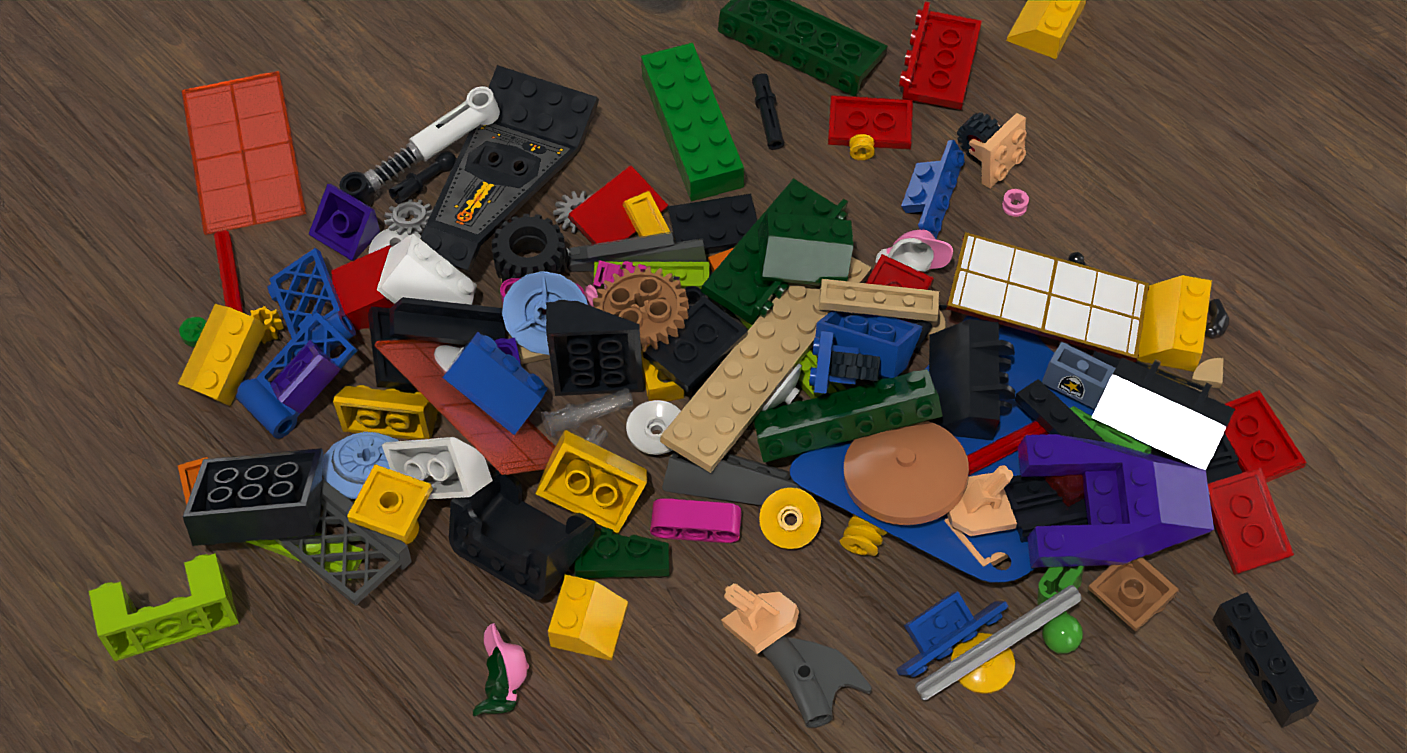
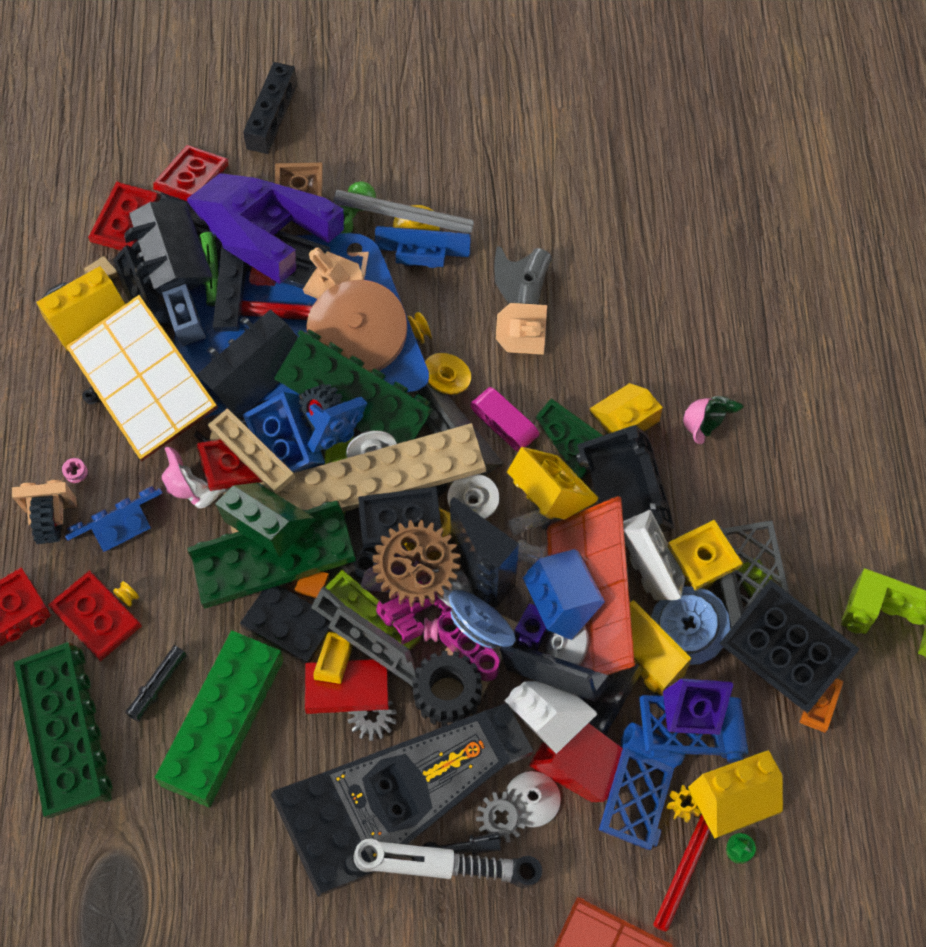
camera: 140 degrees left, 5 degrees up
(344, 223) = (560, 848): dark purple slope -> none

